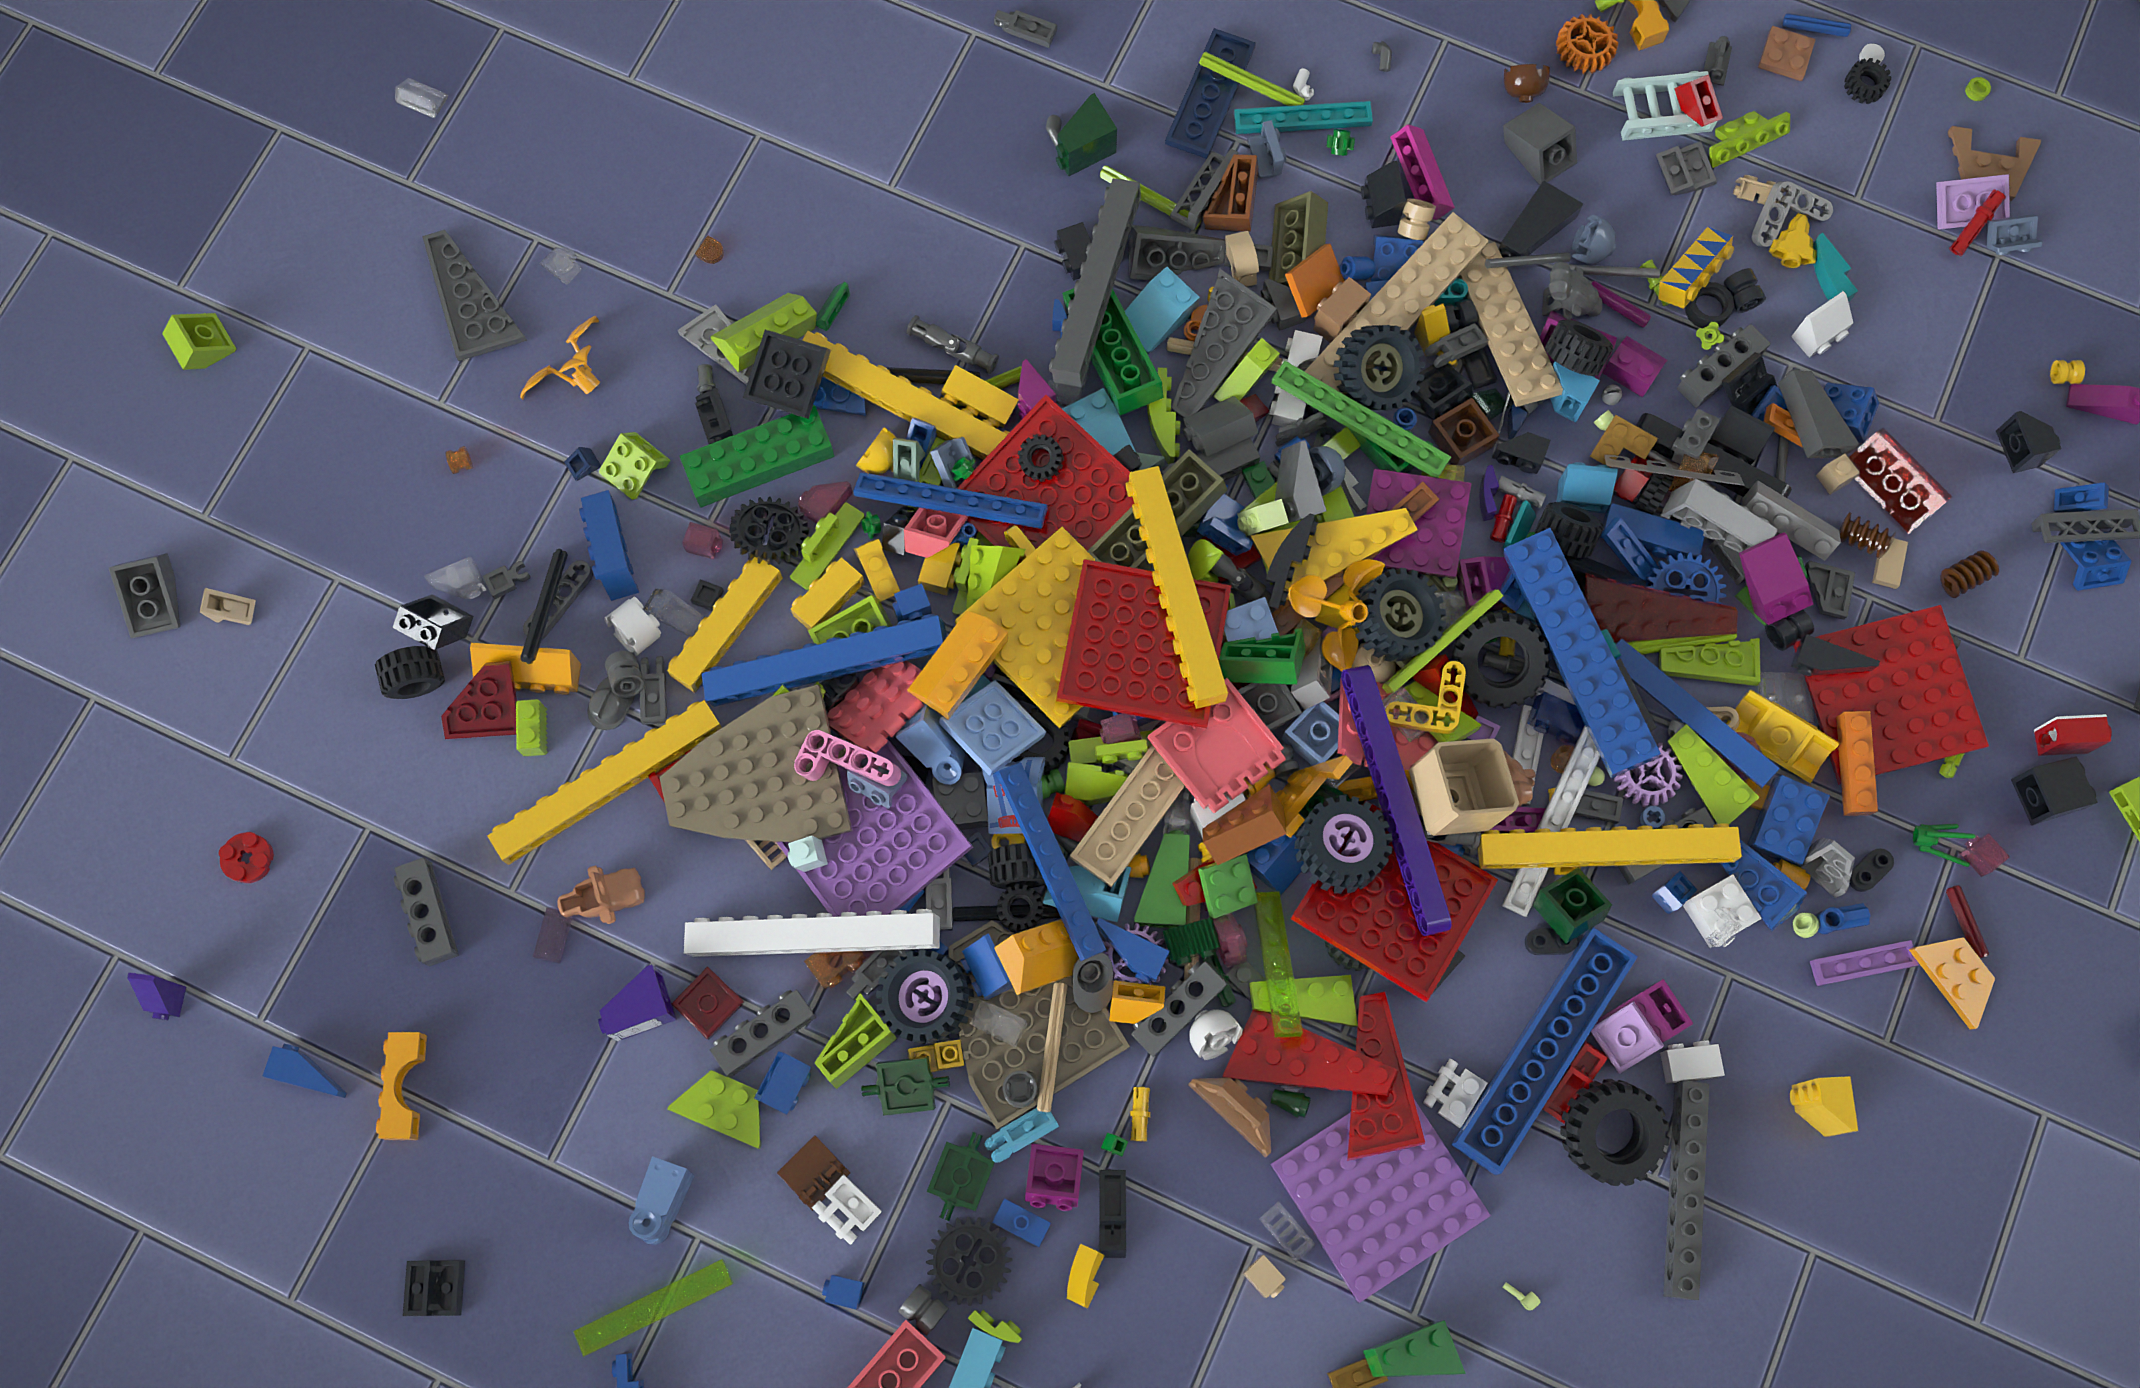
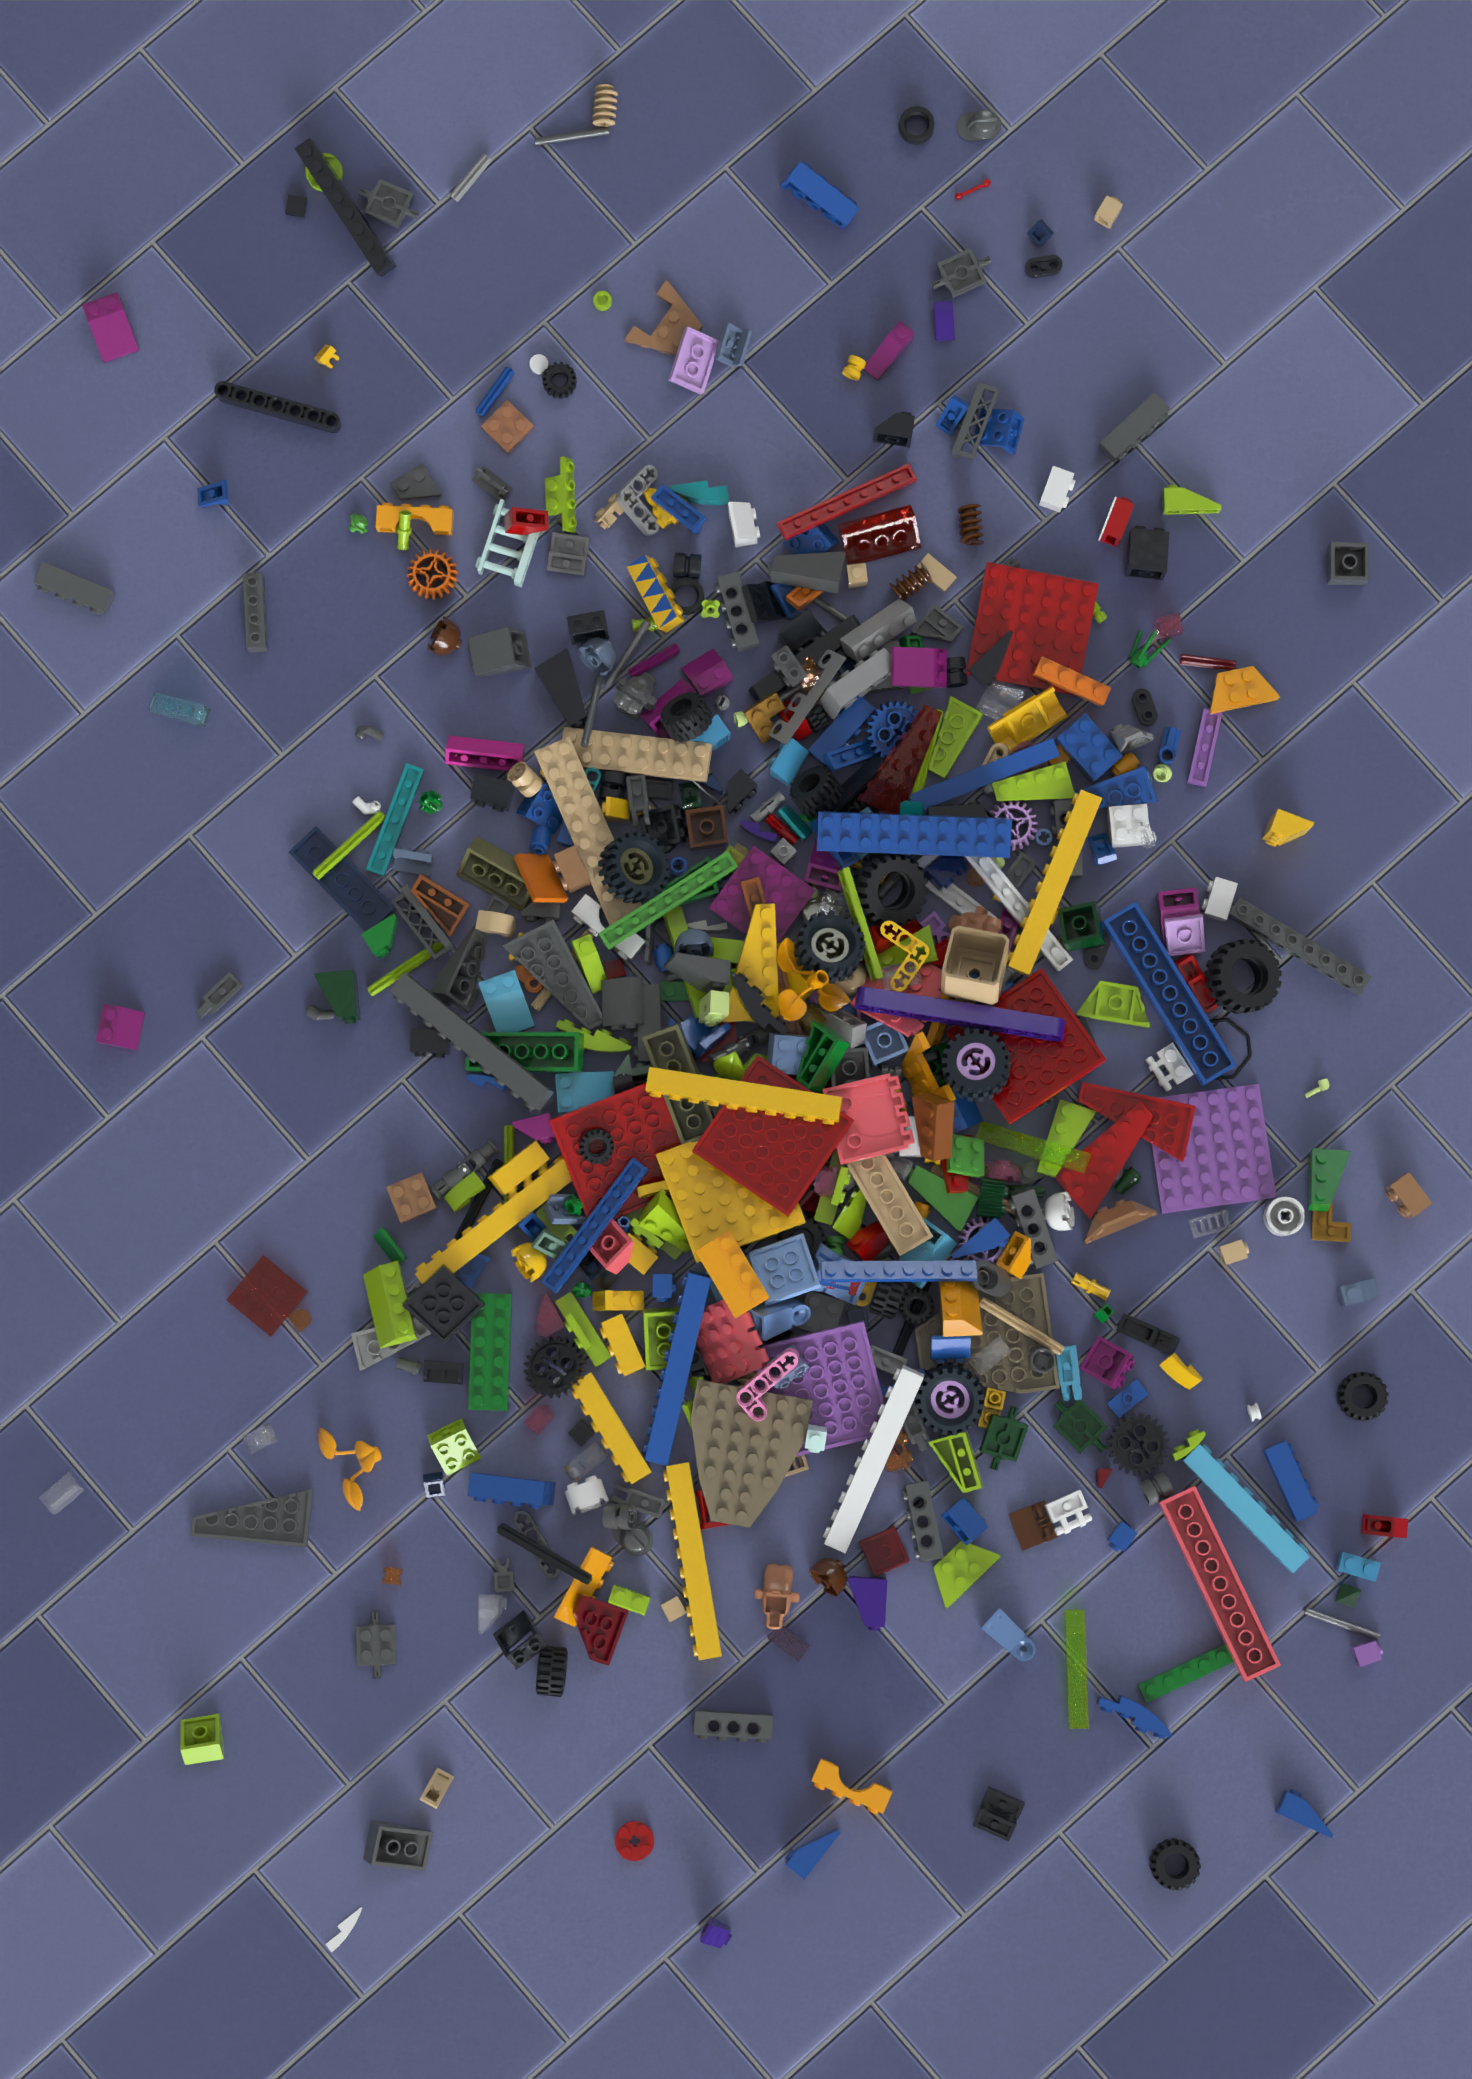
camera: 65 degrees left, 10 degrees up
(36, 581) = (345, 1928): none -> white sticker
(374, 477) = (376, 1645): none -> dark grey plate
(541, 784) = (673, 1608): none -> tan tile
(651, 946) = (830, 1575): none -> reddish brown cylinder
(722, 207) = (267, 1295): none -> clear red plate
(894, 303) = (412, 1197): none -> medium nougat brick
(911, 1231) = (1102, 1475): none -> dark red slope
(931, 354) = (461, 1193): none -> lime slope
(1170, 151) = (382, 936): none -> green slope
(1354, 1316) = (1294, 1217): none -> white brick
(1479, 529) = (783, 852): none -> light grey brick
(1497, 991) = (1115, 1004): none -> lime wing
(1529, 1183) = (1248, 1046): none -> black piece
(1632, 209) = (588, 623): none -> black window
(1802, 253) = (678, 509): none -> blue piece
(1915, 424) = (846, 501): none -> red tile
(1983, 214) = (712, 367): red pin -> none
(2066, 653) = (1056, 489): none -> white brick

